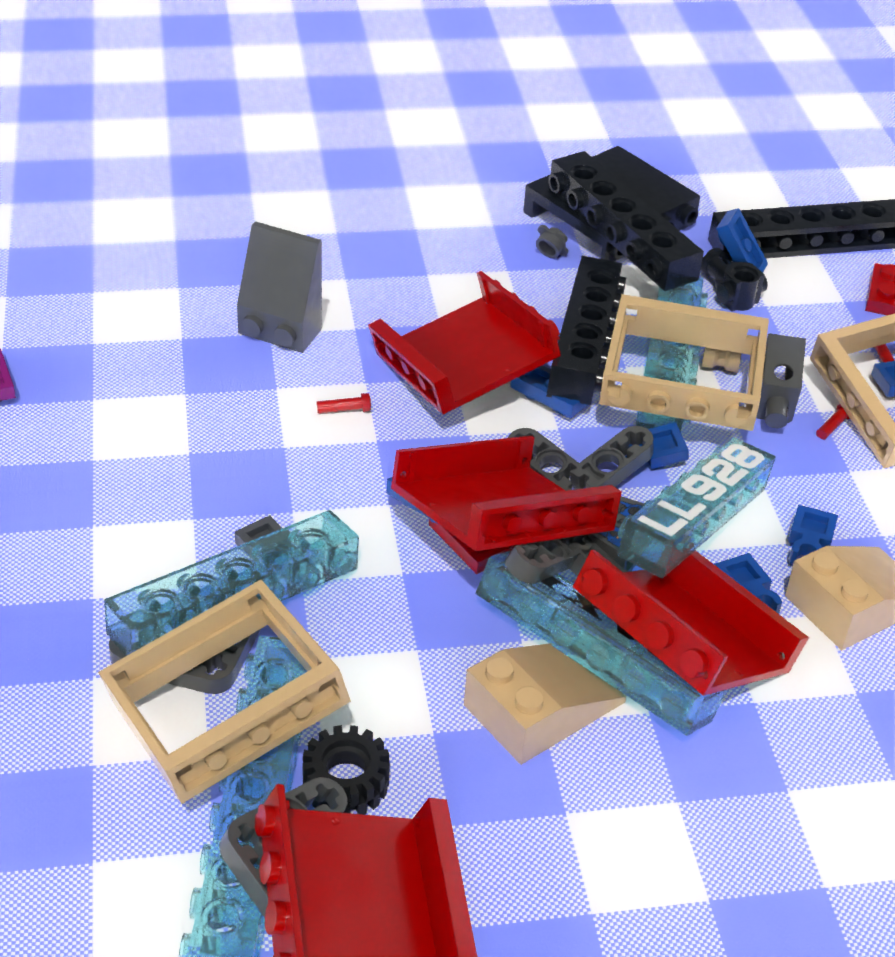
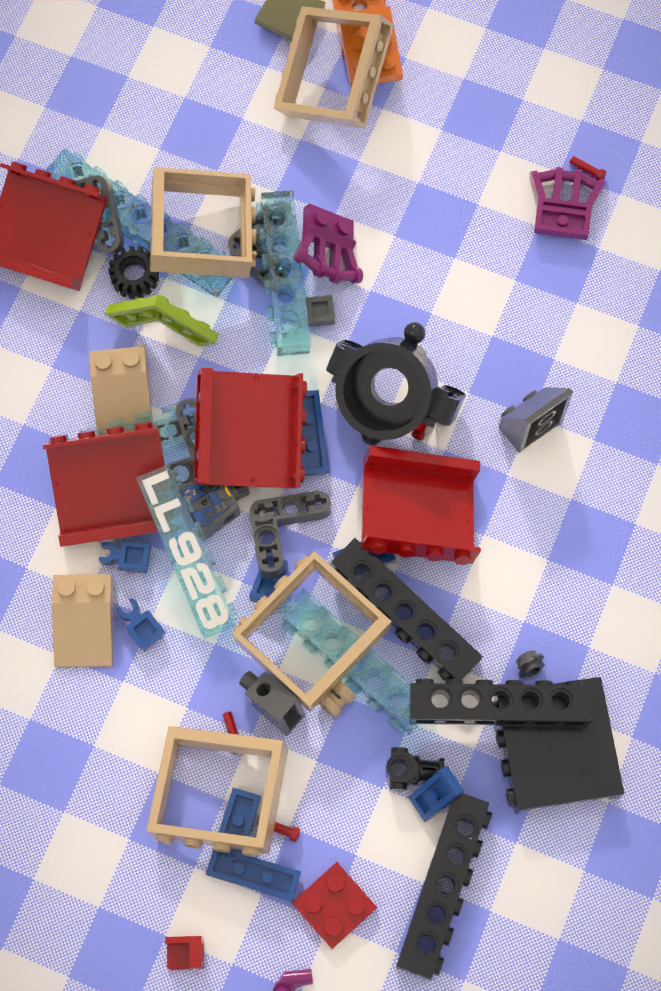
camera: 125 degrees right, 30 degrees up
(183, 546) = (330, 232): none -> magenta plate
(356, 390) = (366, 412): none -> black piece
(405, 643) = (160, 310): none -> lime plate

